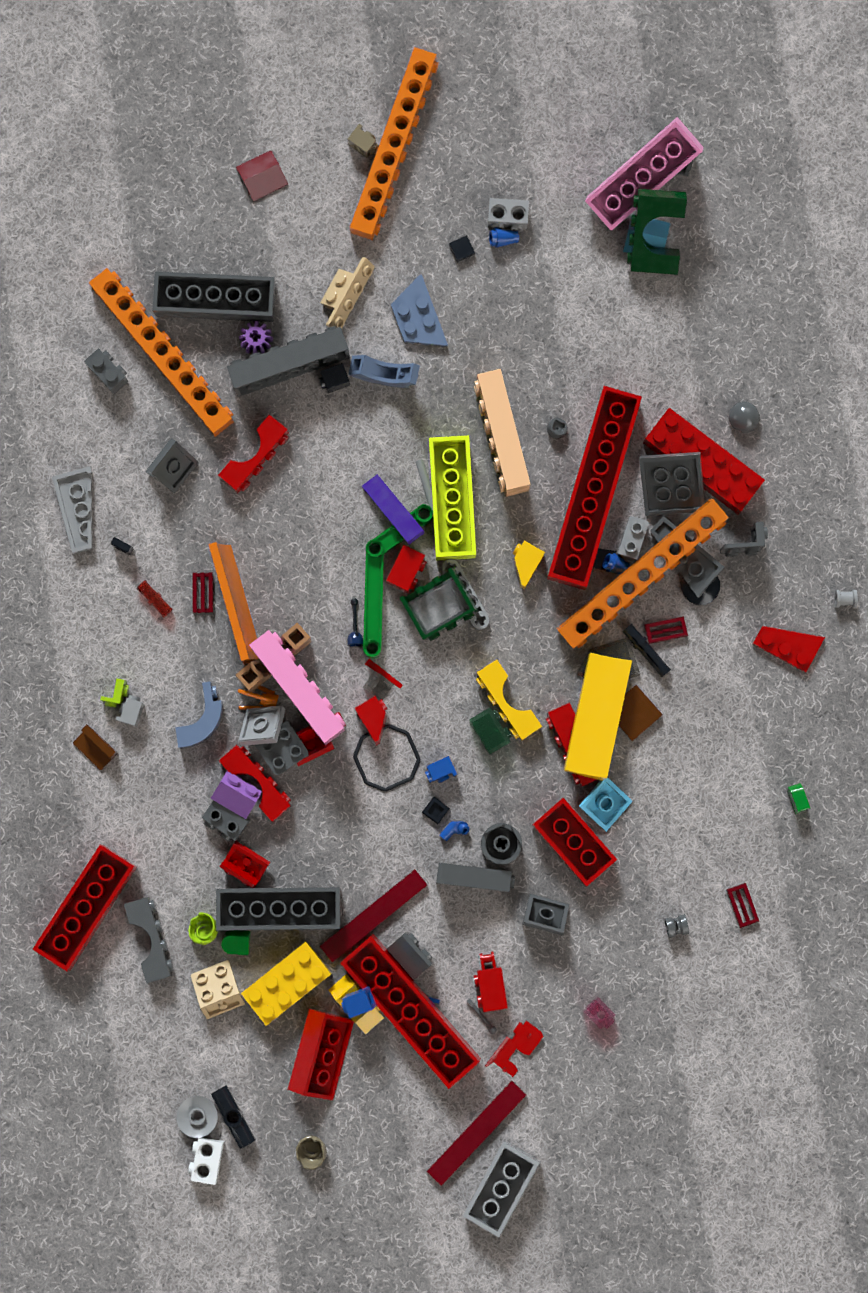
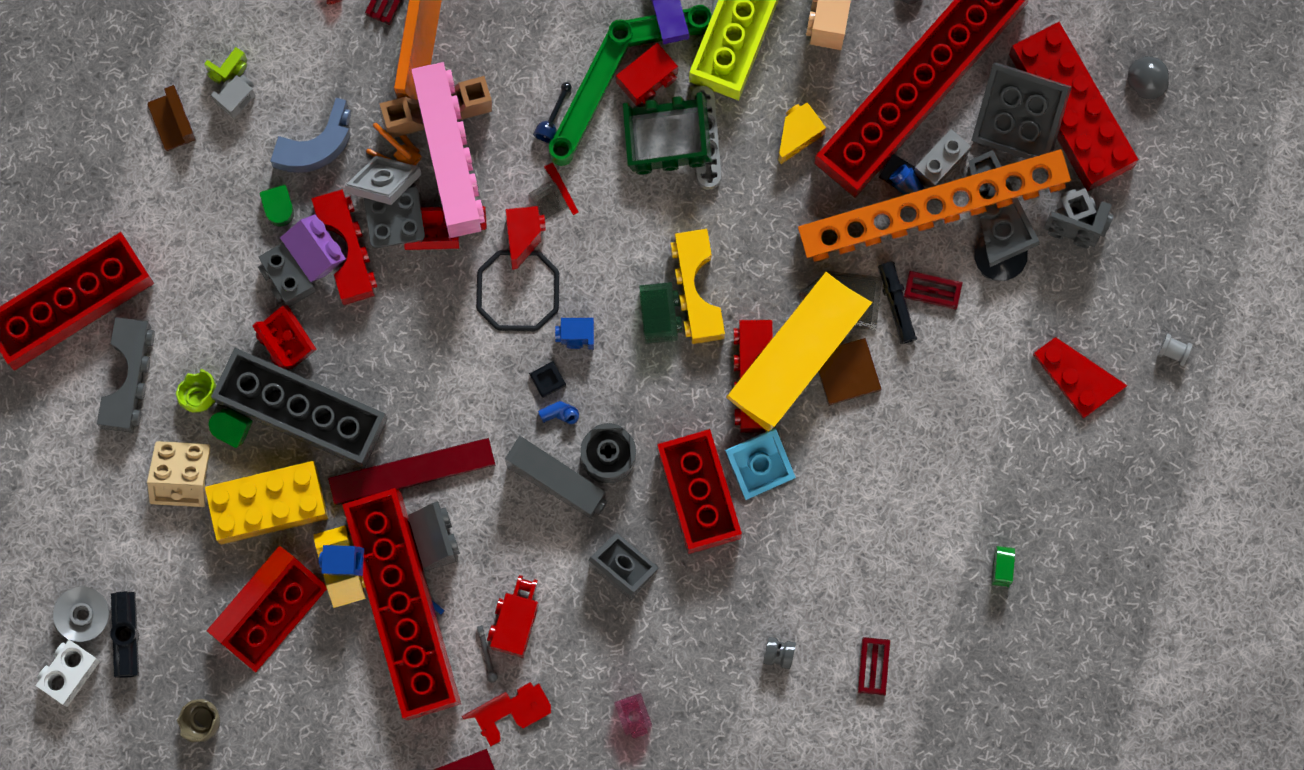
camera: 25 degrees right, 5 degrees down
(196, 774) = (277, 205): none -> green piece
(742, 527) = (1081, 202): none -> light grey brick

